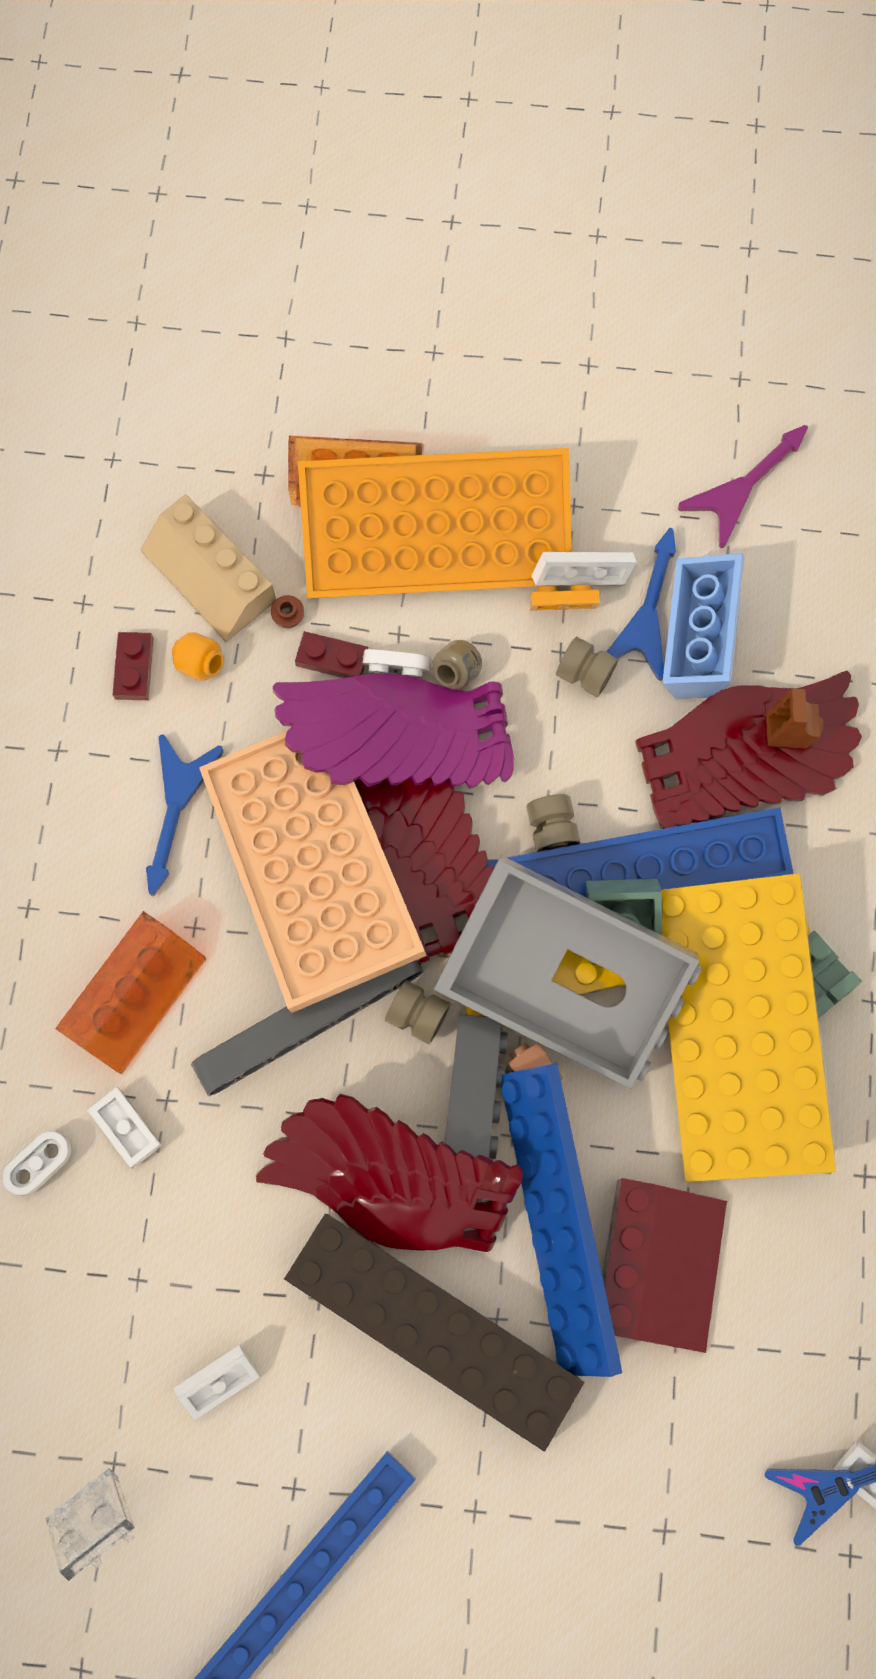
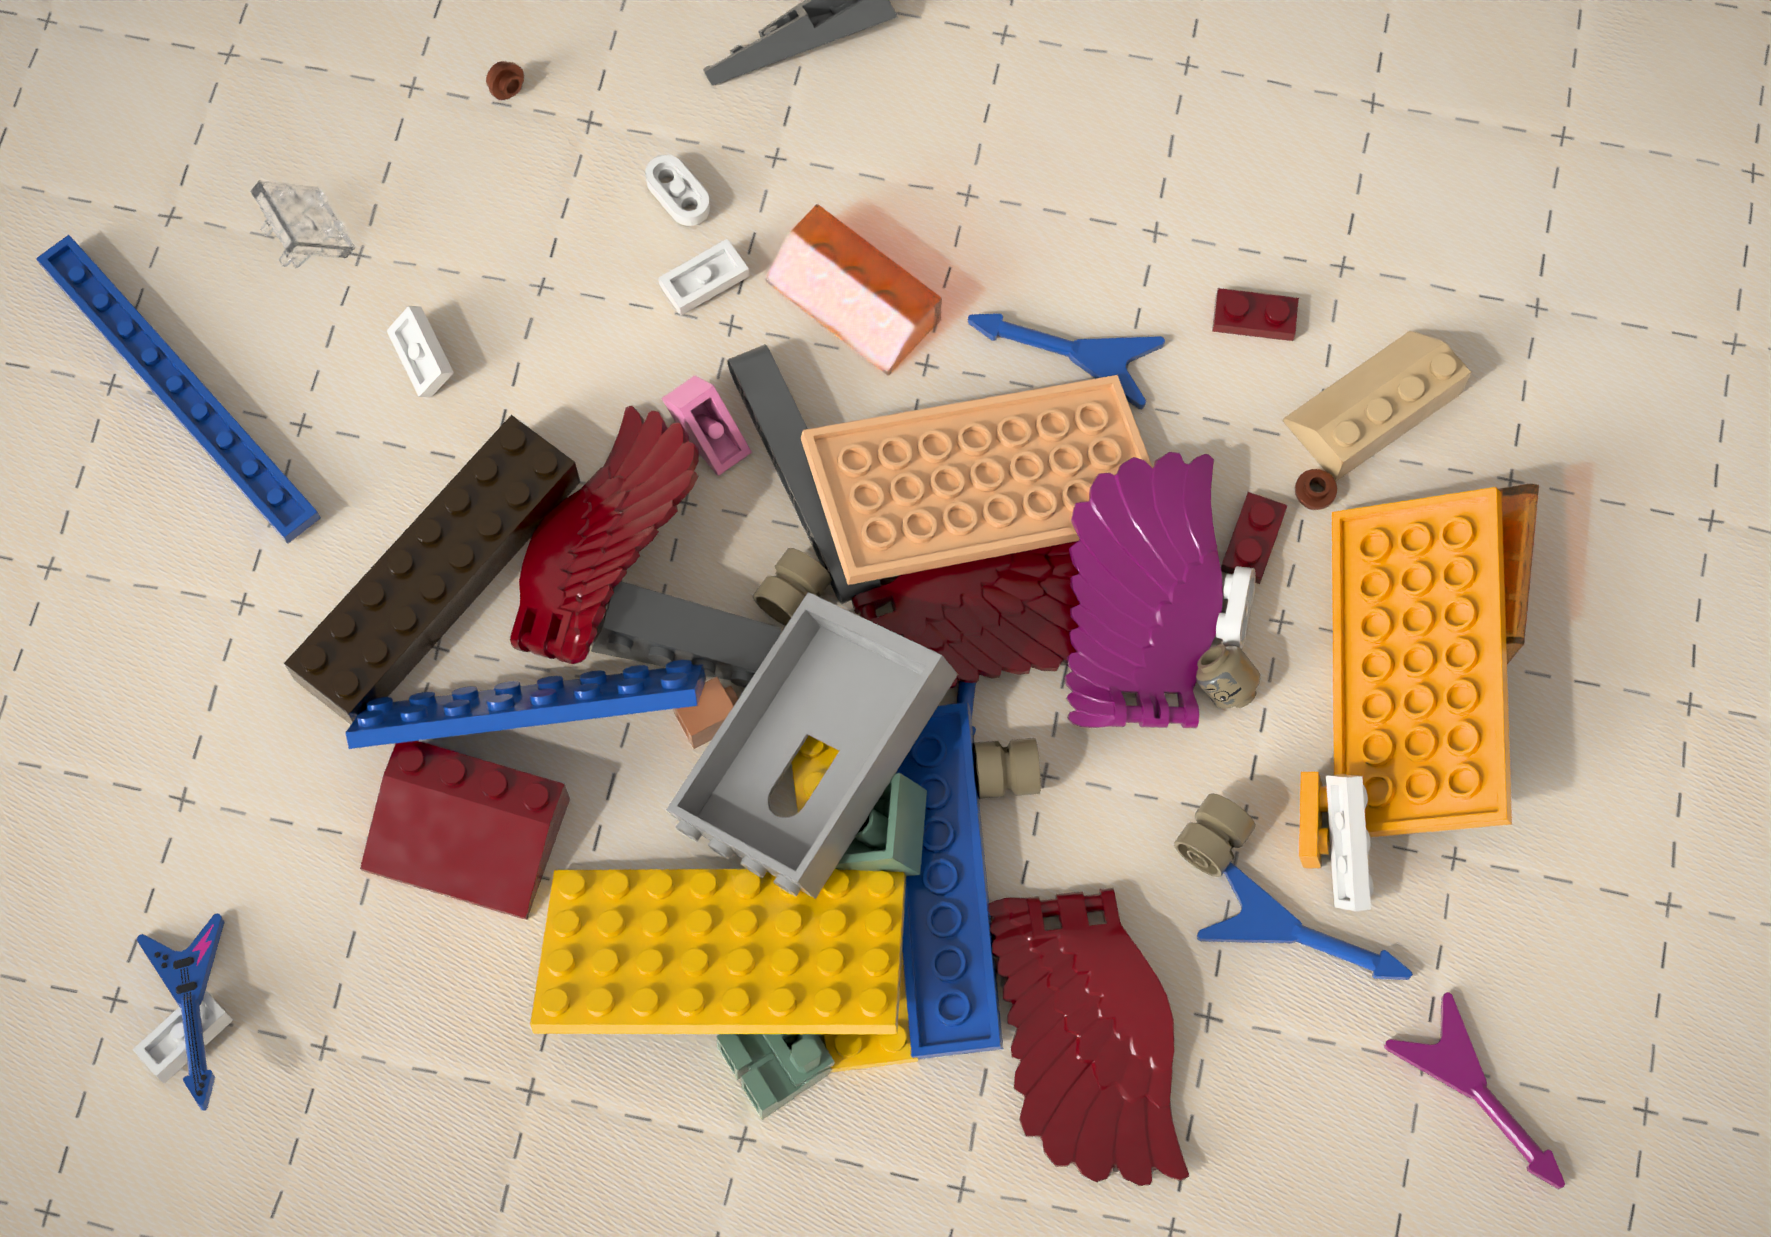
camera: 95 degrees right, 5 degrees down
(197, 656) = (1259, 381): light orange head -> none
(269, 1105) = (707, 423): none -> bright pink slope
(703, 625) = (1260, 976): light blue slope -> none
(793, 721) = (1112, 1081): dark orange arch -> none

